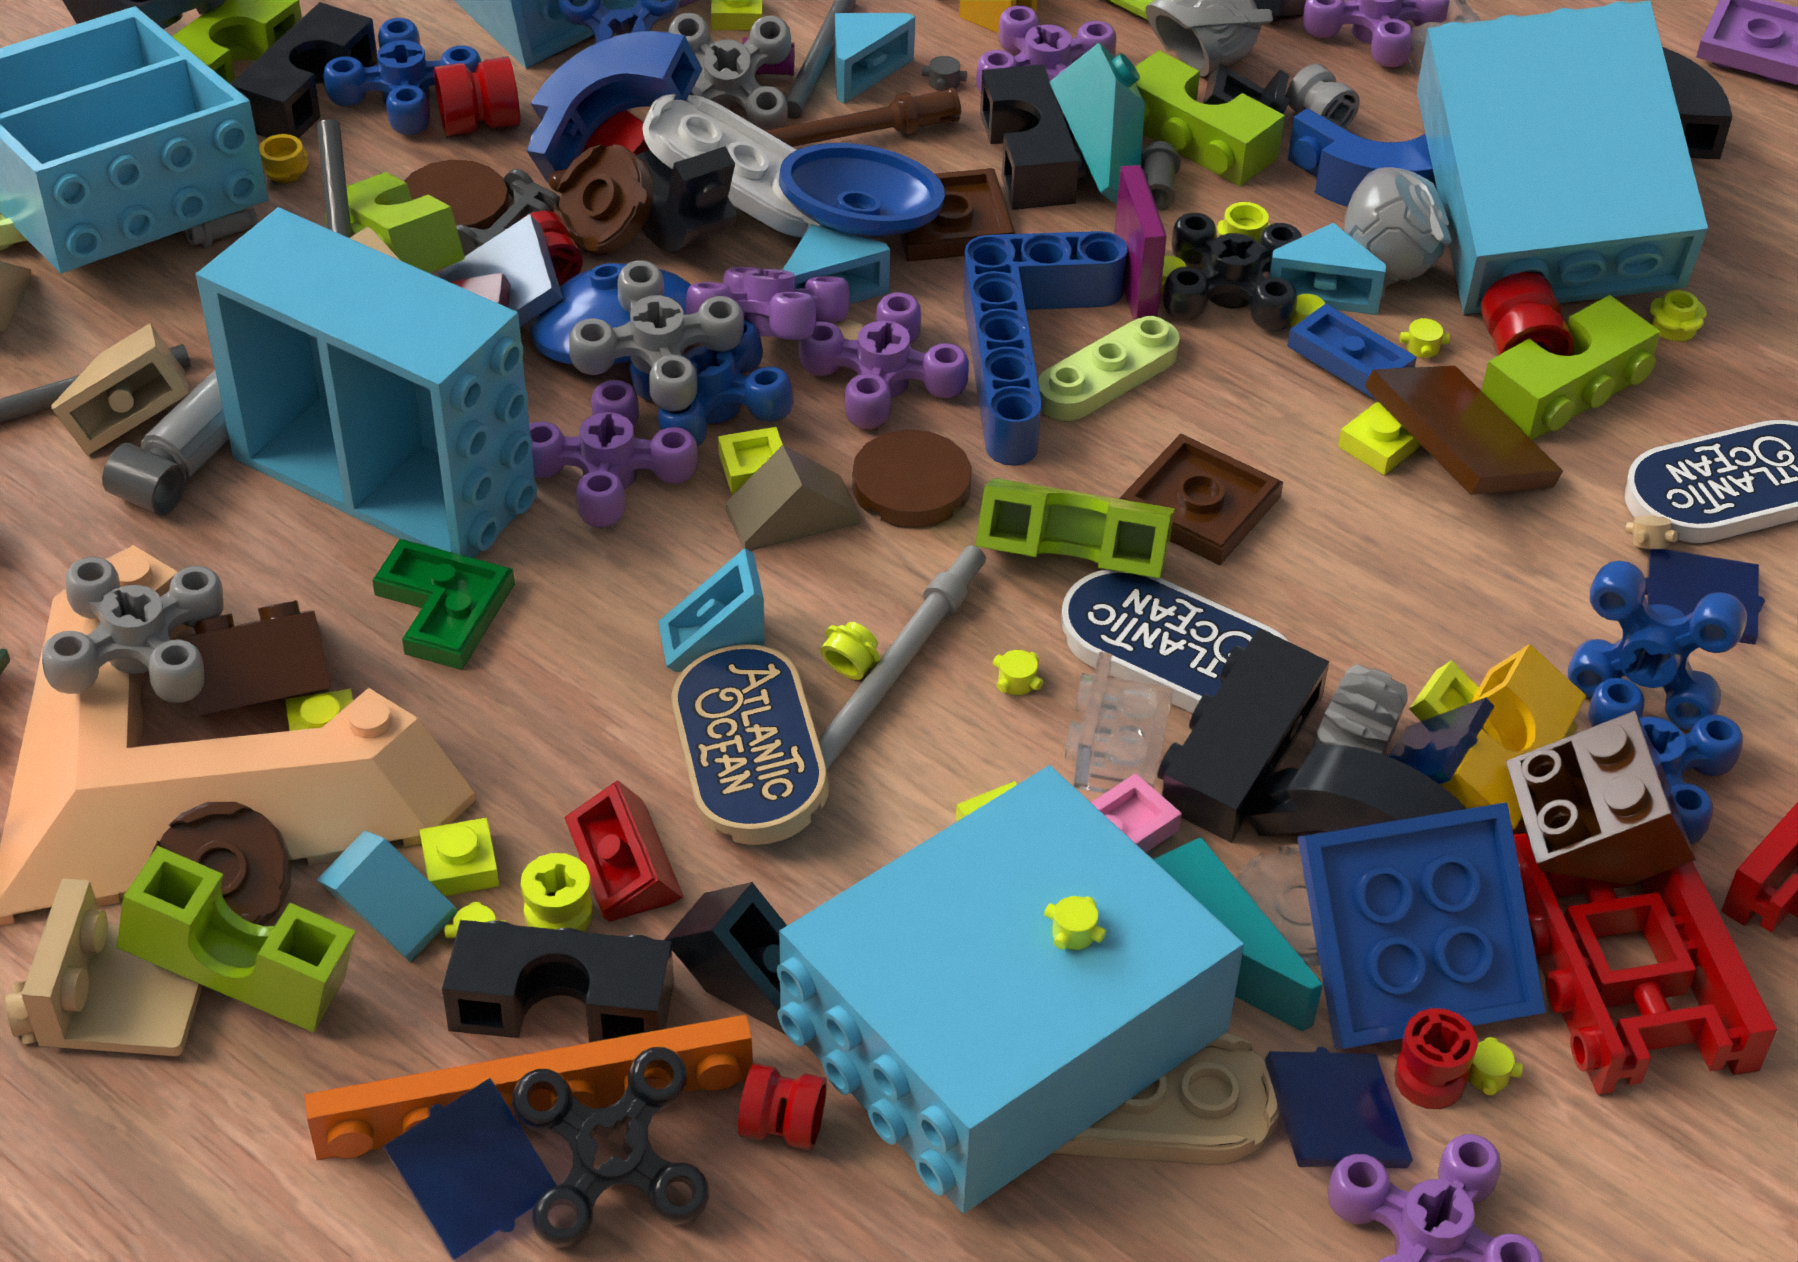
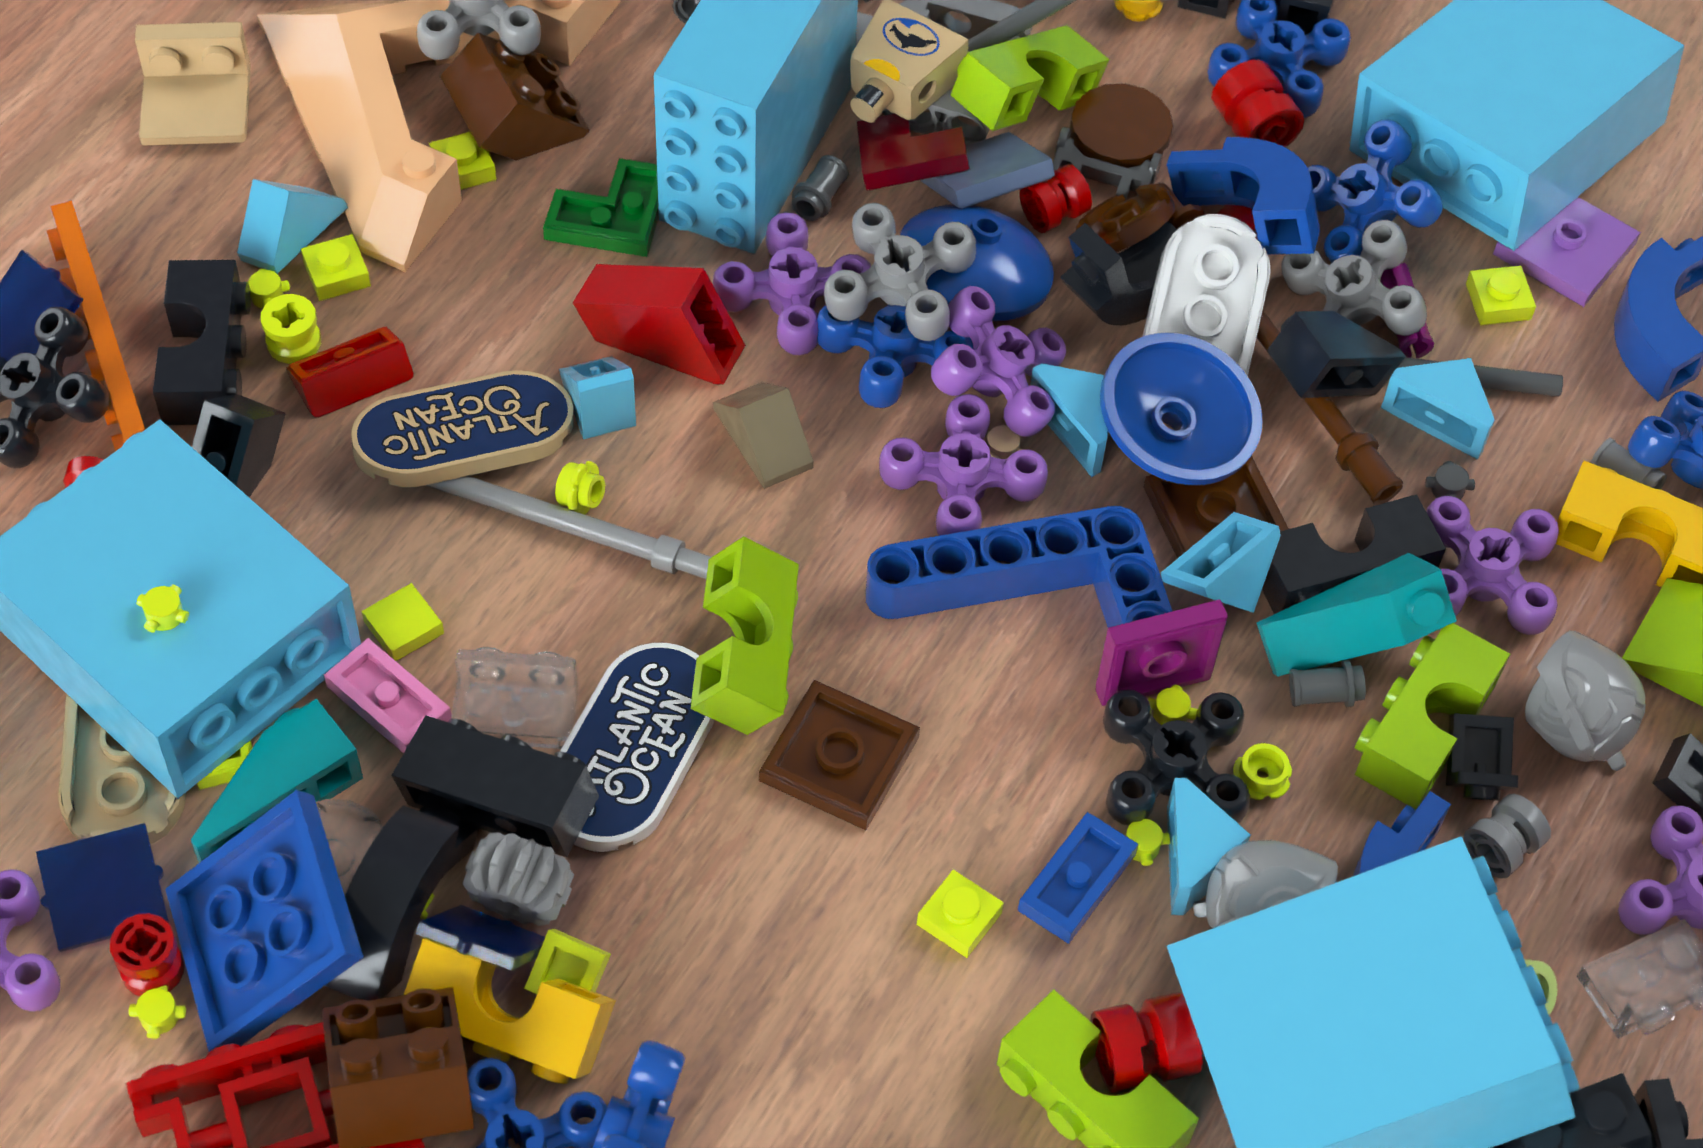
camera: 80 degrees right, 10 degrees up
(184, 925) = (200, 163): lime arch -> none
(242, 848) = (293, 123): reddish brown tile -> none
(635, 553) = (662, 317): none -> red slope
(745, 453) = (812, 388): neon yellow plate -> none
(812, 93) = (1332, 356): none -> black slope
(911, 477) = (819, 515): reddish brown tile -> none
(1017, 672) = (583, 620): neon yellow piece -> none
(1038, 189) = (1228, 562): none -> medium azure slope
(1108, 368) = (1020, 682): yellowish green plate -> none
(1424, 338) = (1130, 954): neon yellow piece -> none
(1463, 429) = (968, 981): reddish brown tile -> none

